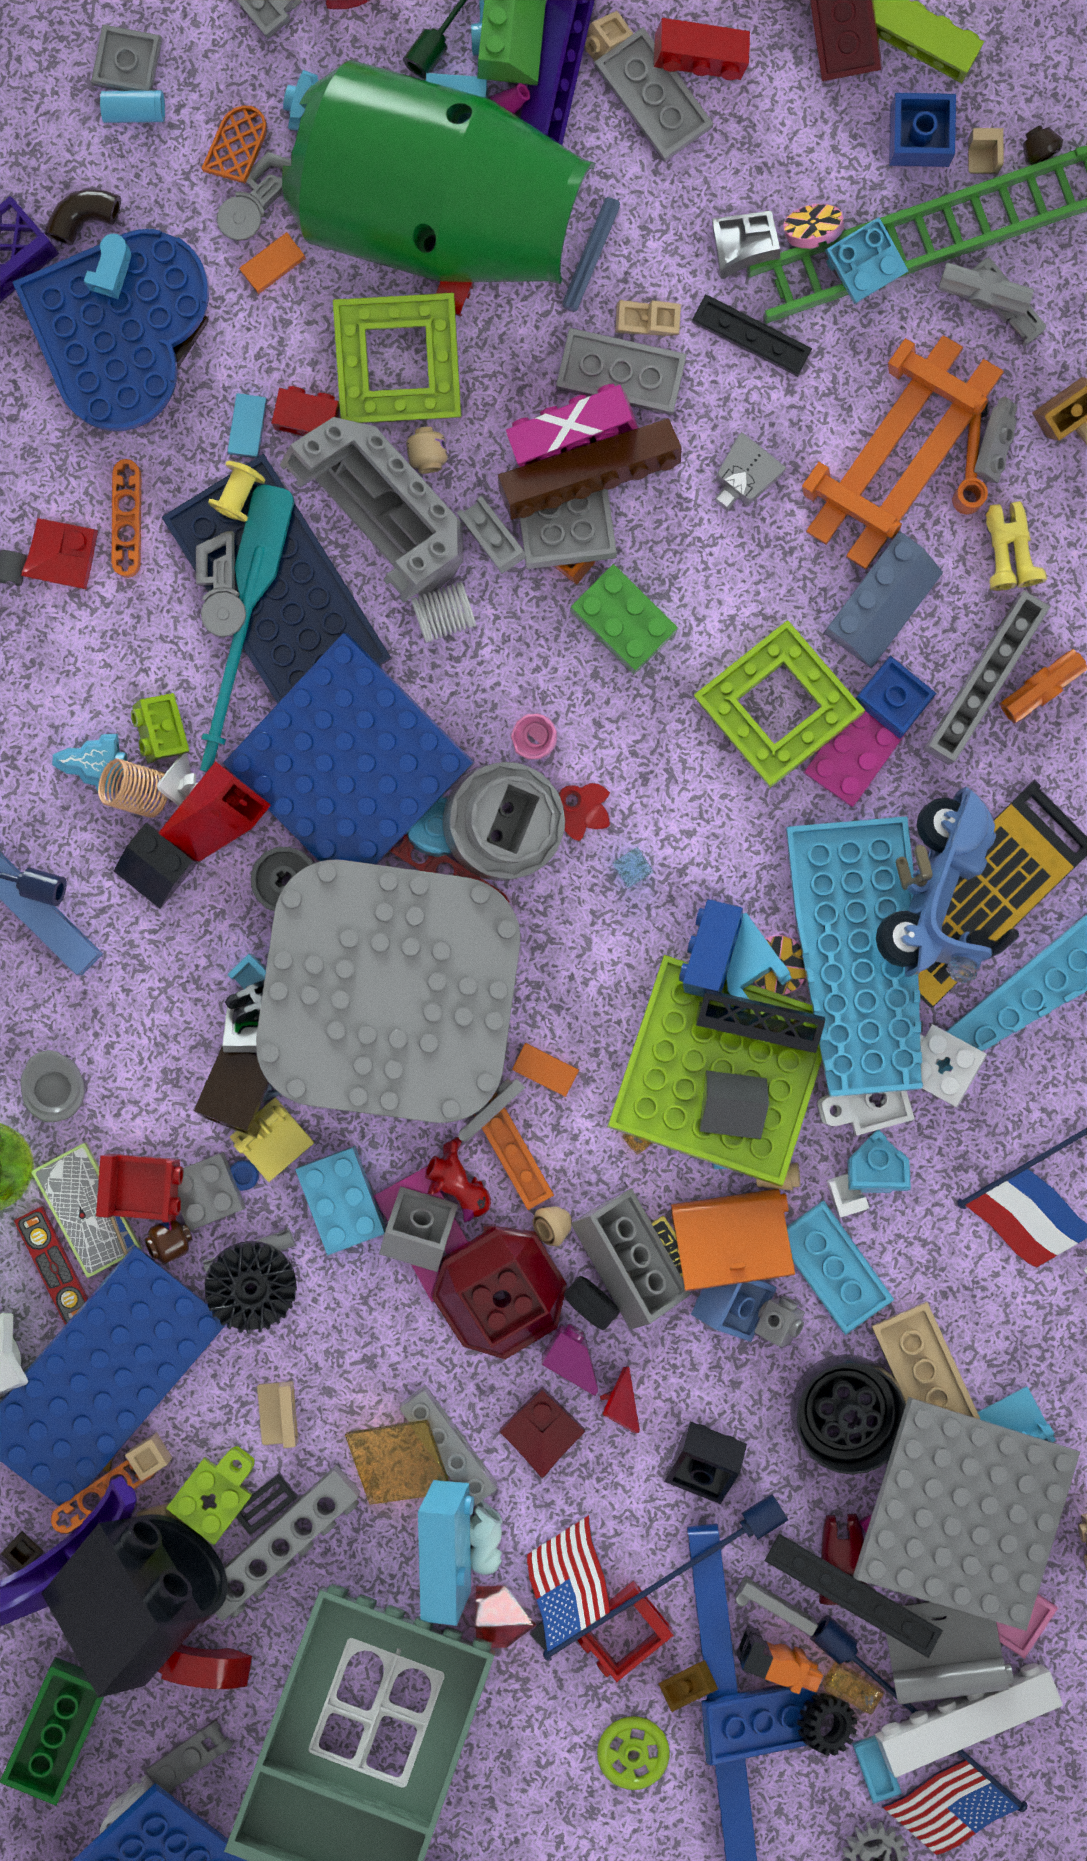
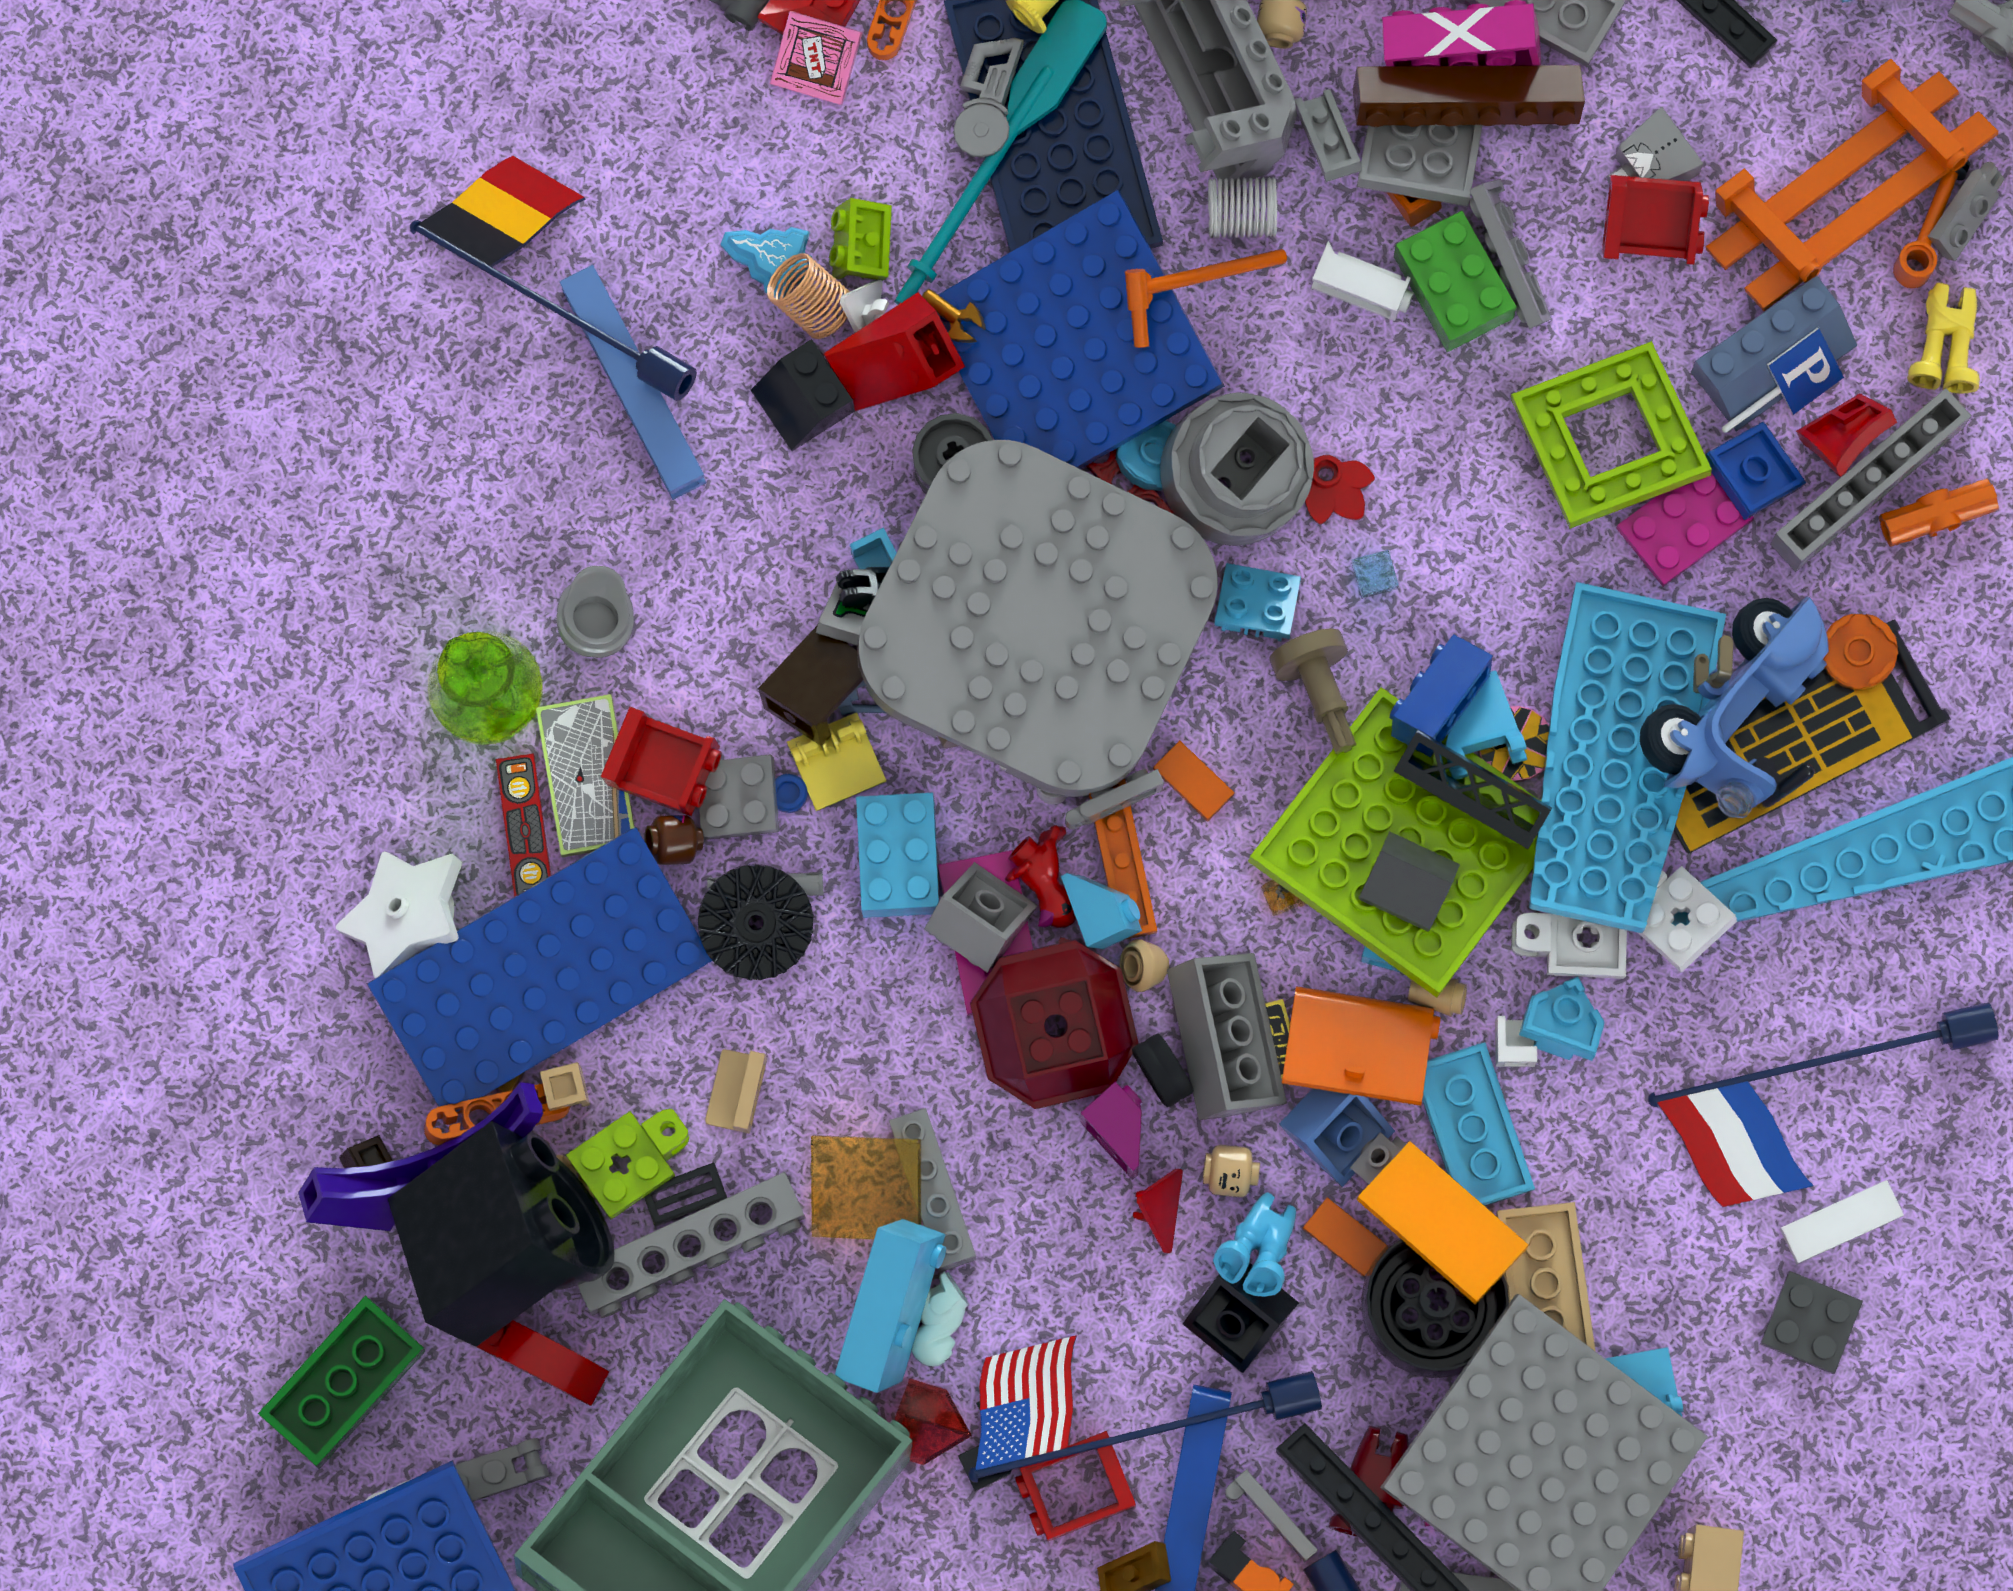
camera: 20 degrees right, 10 degrees down
(77, 593) = (816, 57): none -> tile
(250, 768) = (955, 316): none -> pearl gold bar
(386, 708) = (1141, 286): none -> orange bar
(506, 1195) = (1101, 911): none -> medium azure slope
(539, 728) = (1314, 379): bright pink hair -> none
(542, 1431) = (1052, 1212): dark red plate -> none
(550, 916) = (1257, 601): none -> medium azure hinge
(553, 643) = (1362, 284): none -> white window
(607, 956) = (1310, 660): none -> dark tan piece
(659, 582) = (1511, 252): none -> light grey wing
(665, 1360) = (1230, 1171): none -> tan head
(708, 1402) = (1266, 1233): none -> medium azure piece
(761, 522) = (1654, 218): none -> red panel
(765, 1379) = (1344, 1236): none -> orange tile
(838, 1361) = (1442, 1222): none -> light orange tile
(906, 612) = (1800, 376): none -> blue piece
(957, 646) = (1846, 431): none -> red plate
(1017, 814) = (1860, 651): none -> orange tile

